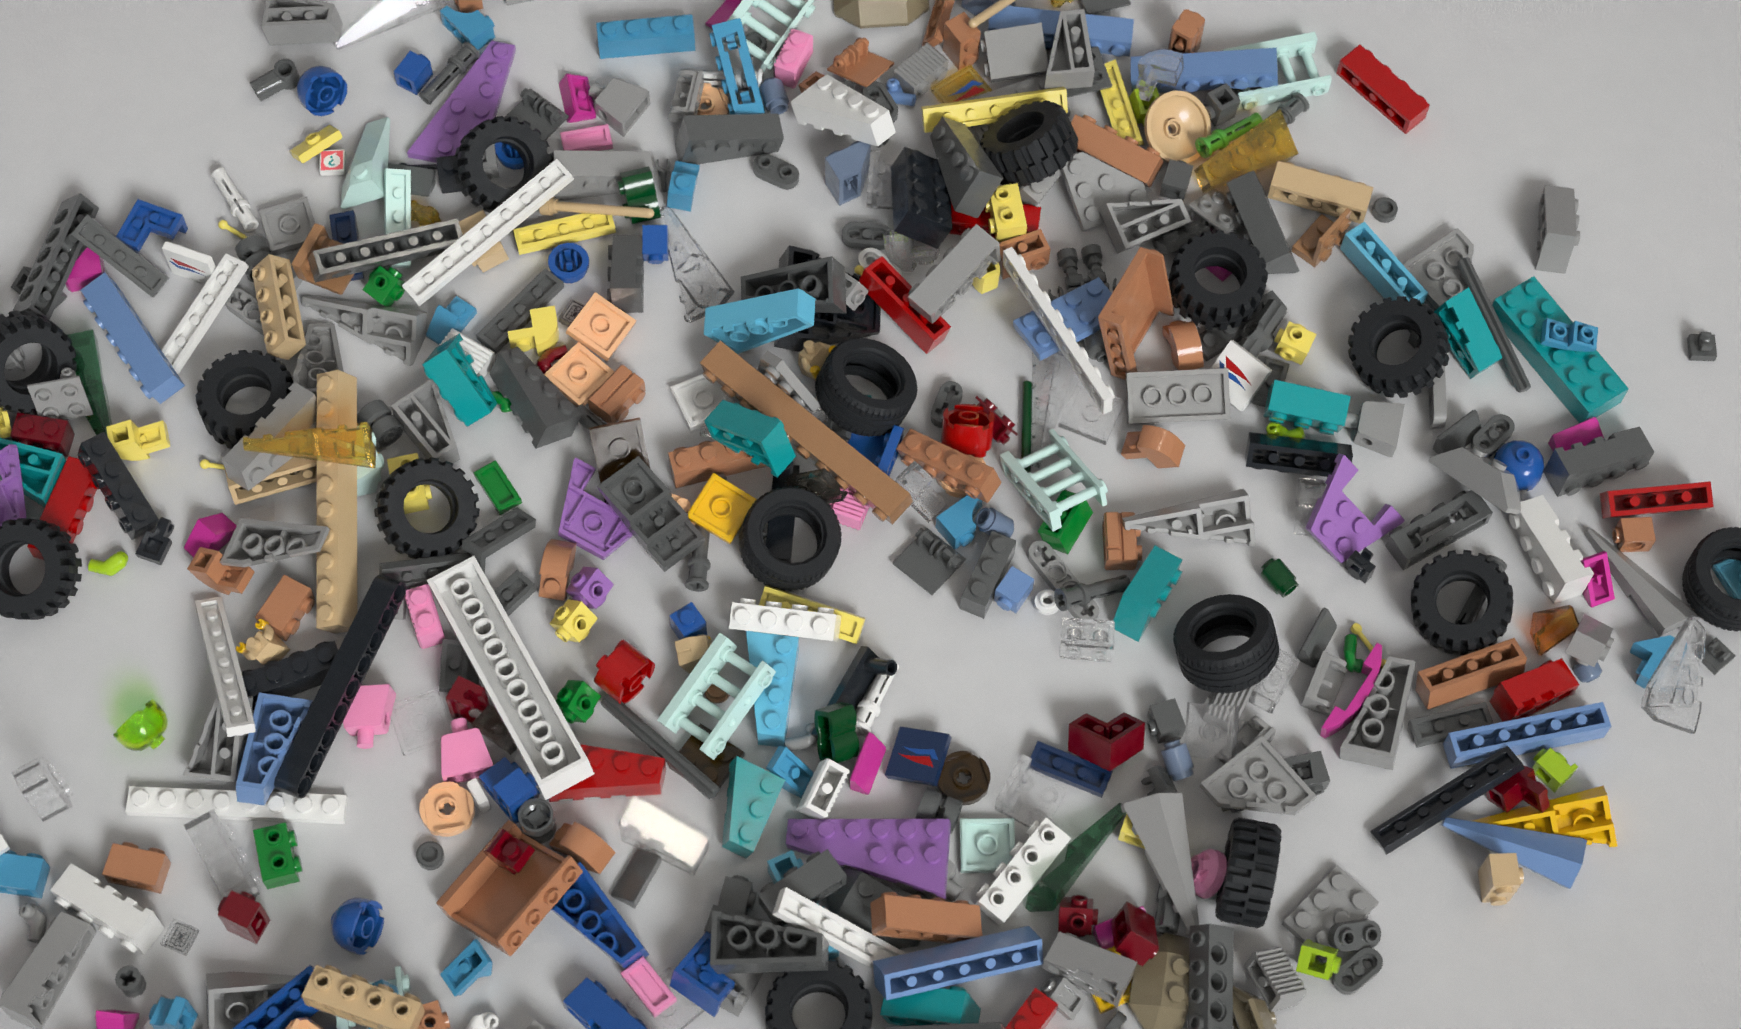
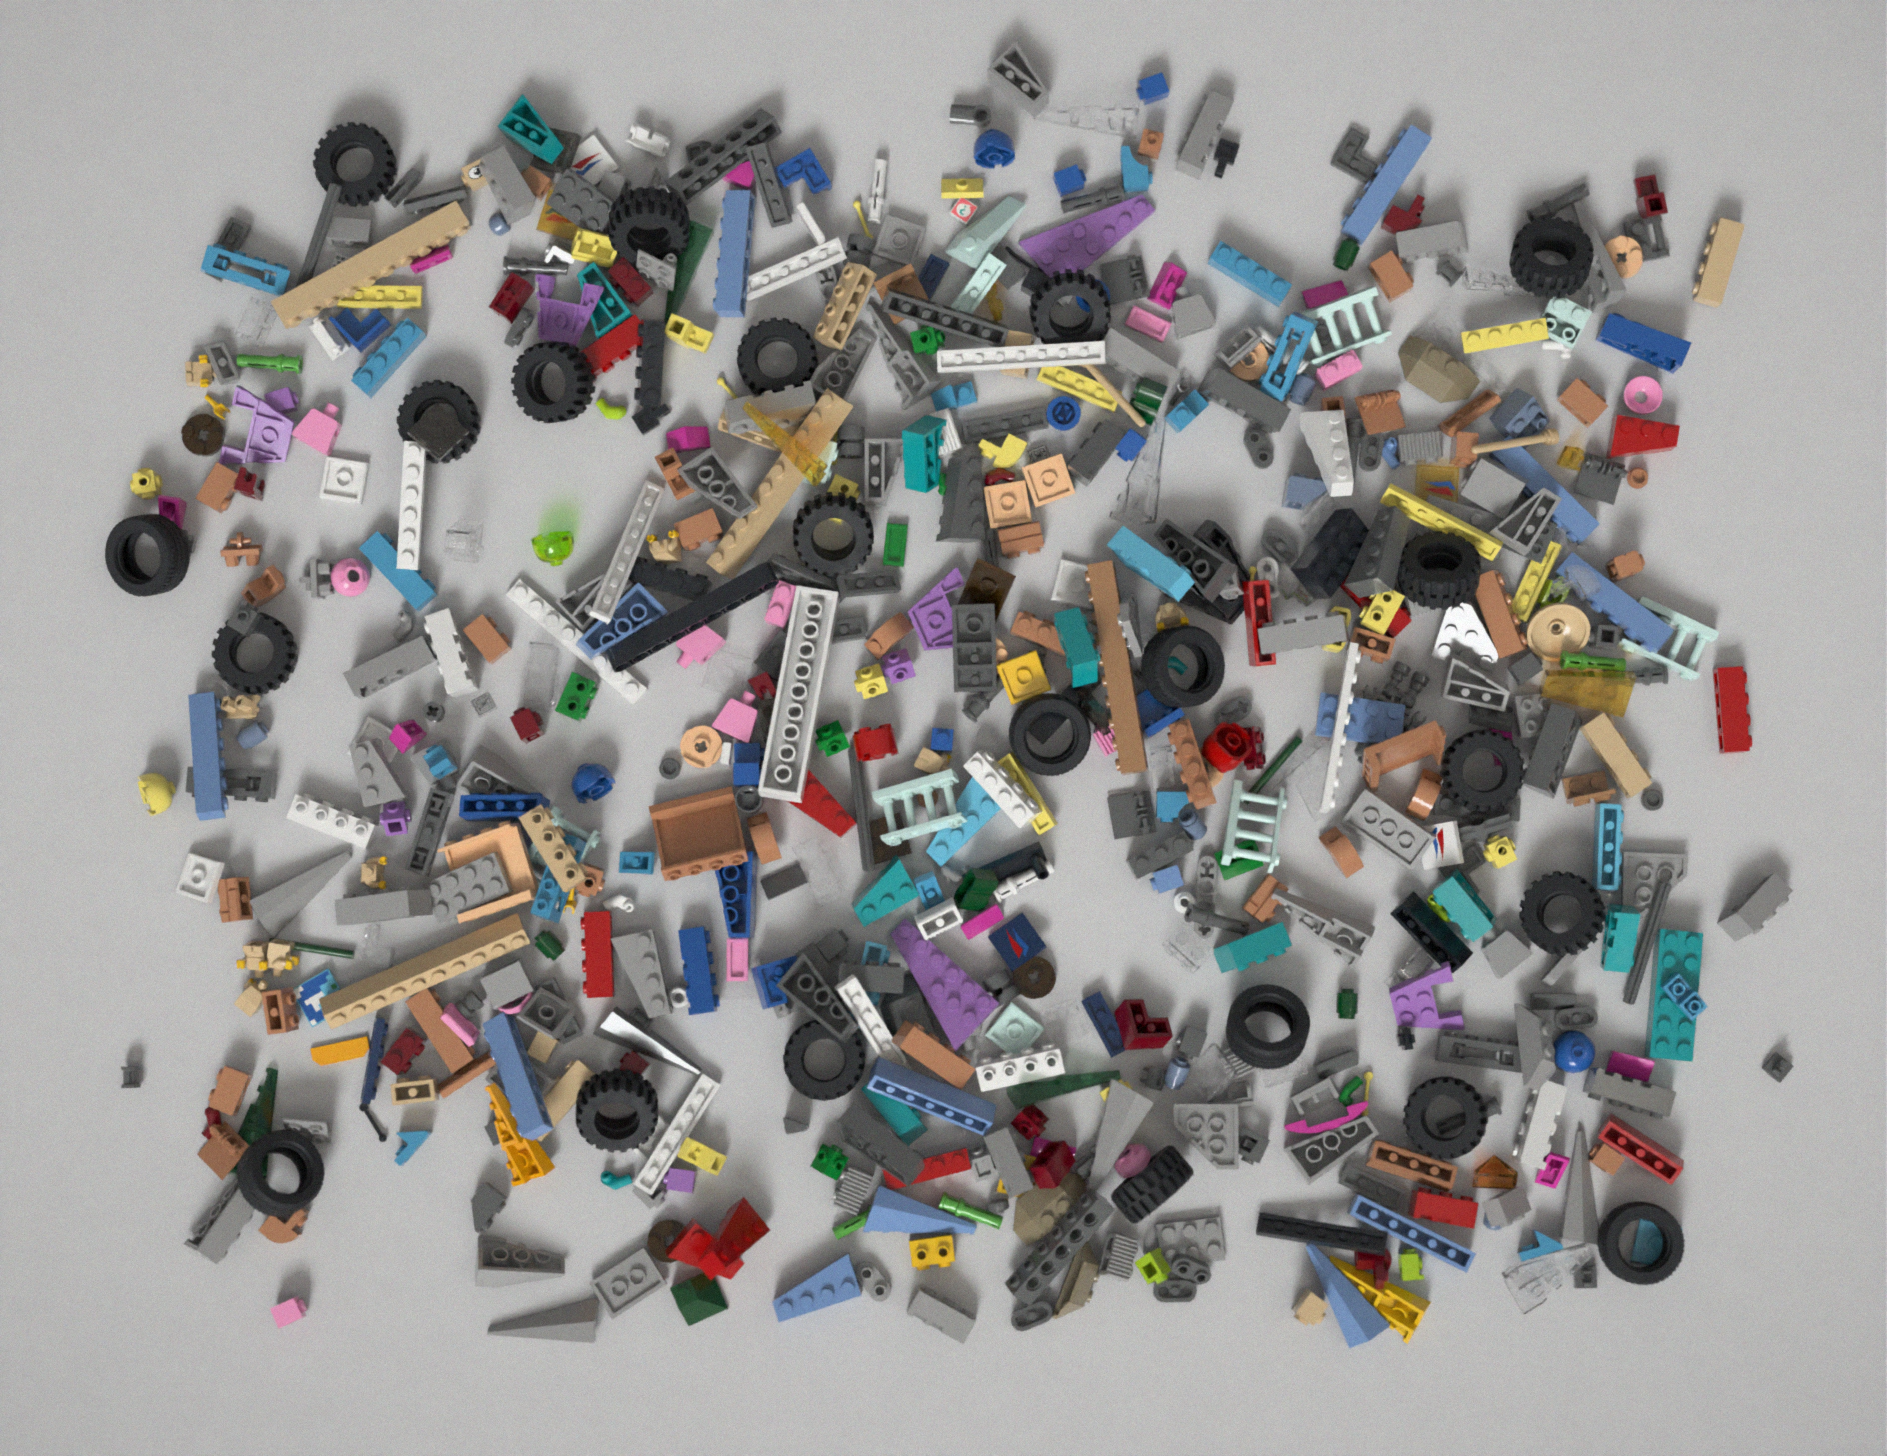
camera: 40 degrees right, 20 degrees up
(508, 851) = (713, 812): dark red brick -> none

